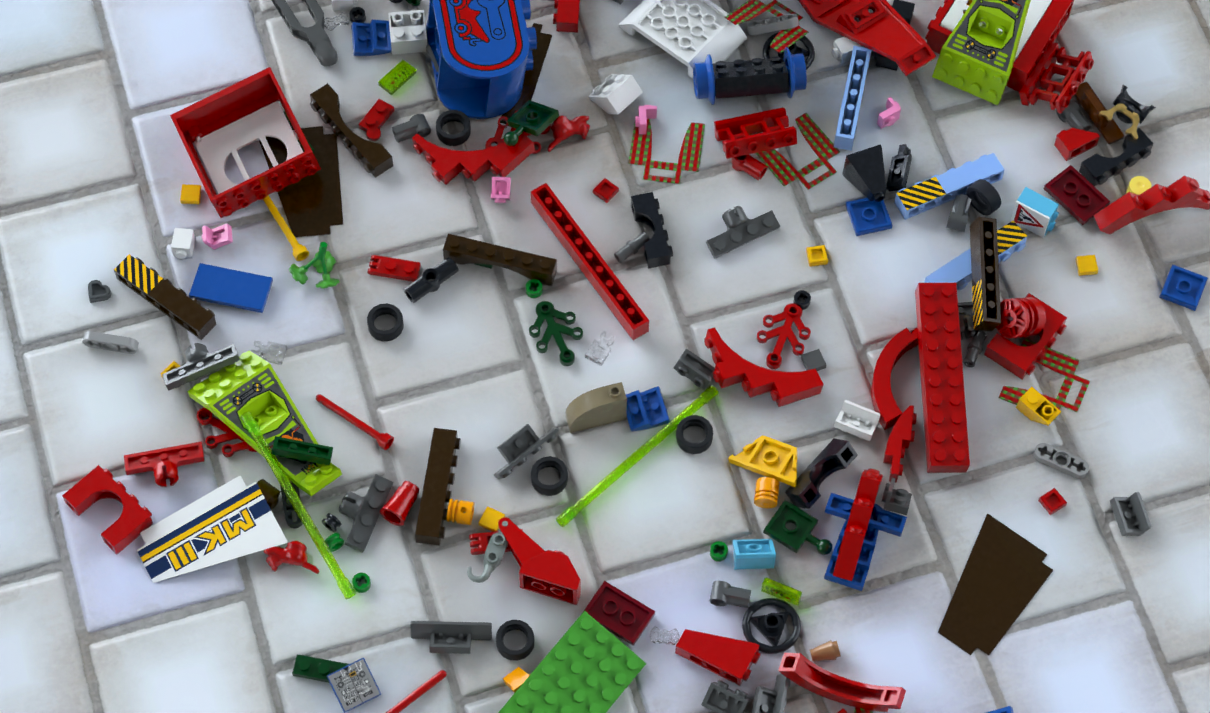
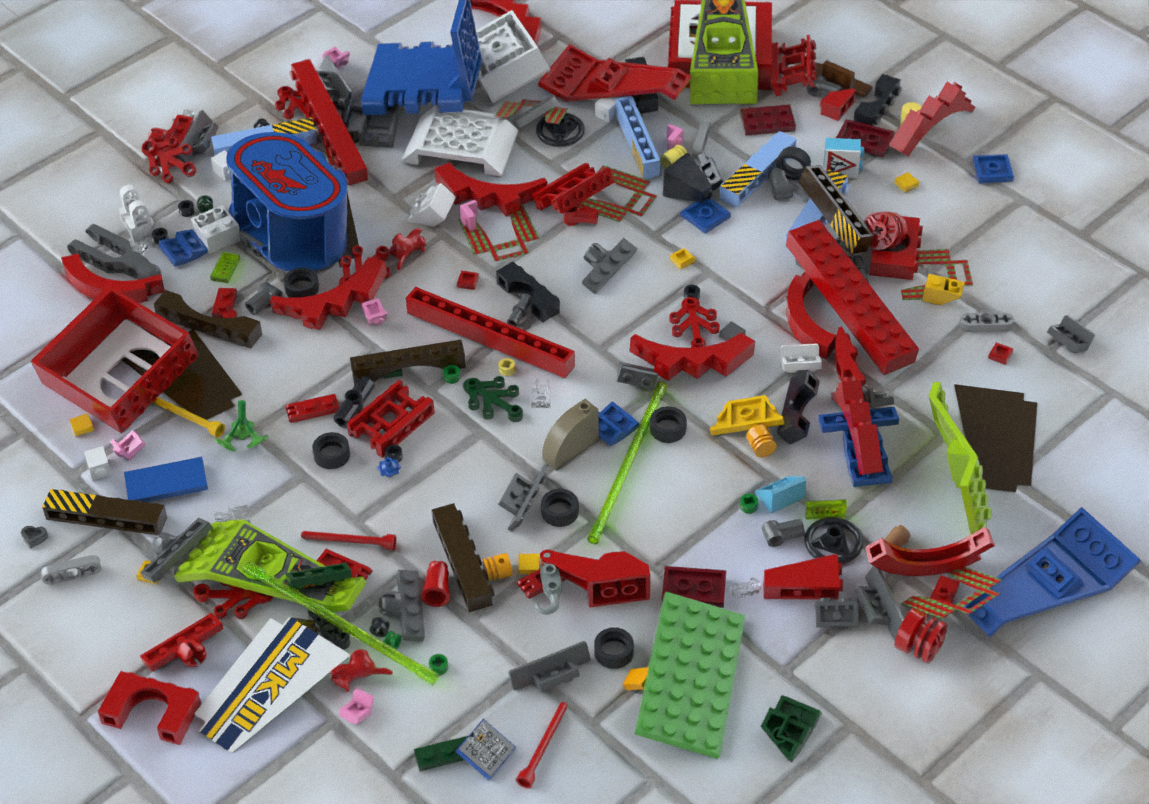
camera: 25 degrees left, 15 degrees down
(271, 593) = (358, 708): none -> bright pink bracket
(282, 59) = (93, 285): none -> red arch
(325, 436) = (357, 569): none -> red hinge
(425, 363) = (389, 467): none -> blue plant
(437, 344) = (394, 449): none -> black bush
(460, 324) = (399, 427): none -> red fence
(530, 118) = (372, 245): dark green plate -> none
(592, 306) = (511, 367): none -> light yellow bush
(692, 112) = (505, 196): none -> red arch
(749, 77) = (514, 162): black brick -> none
(795, 538) = (809, 465): dark green plate -> none
(874, 137) = (672, 155): none -> light yellow piece
(914, 647) = (962, 461): none -> lime wing
(915, 126) = (701, 139): none -> light grey beam
(996, 130) = (767, 119): none -> dark red plate
(1128, 111) = (866, 66): helmet -> none

